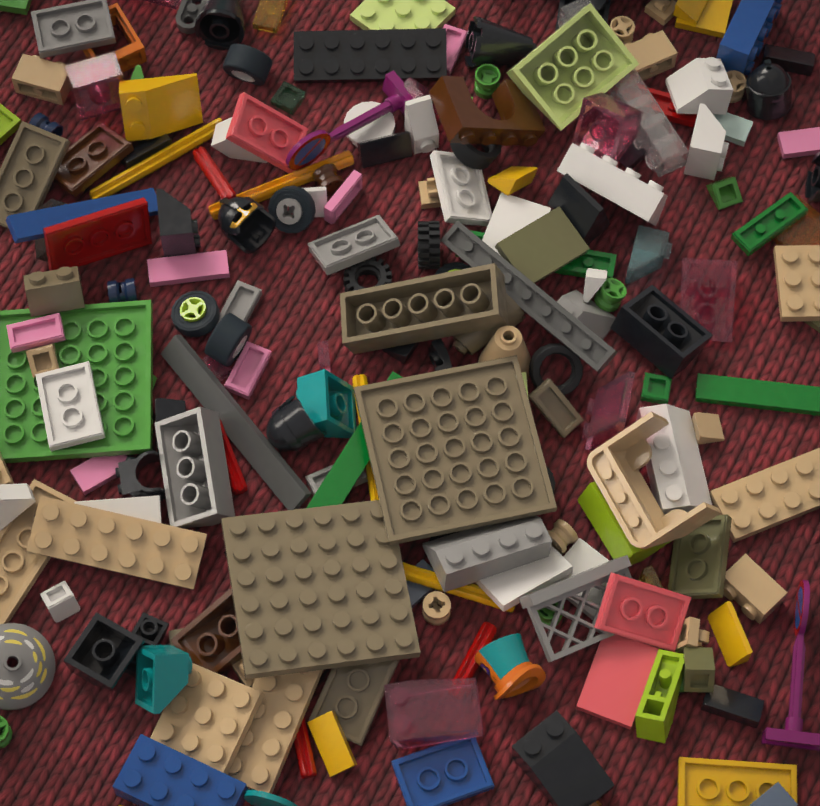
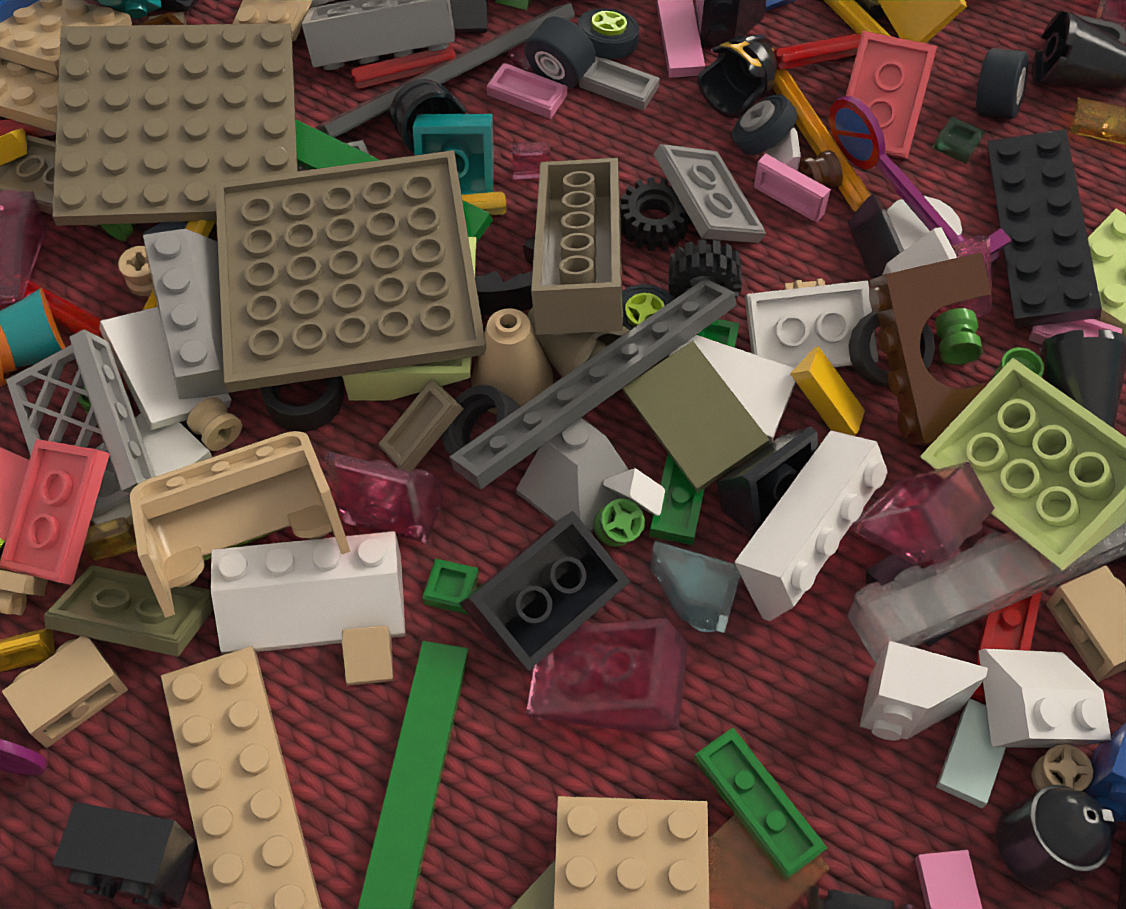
camera: 95 degrees right, 5 degrees down
(725, 192) = (831, 738): bright green slope -> none

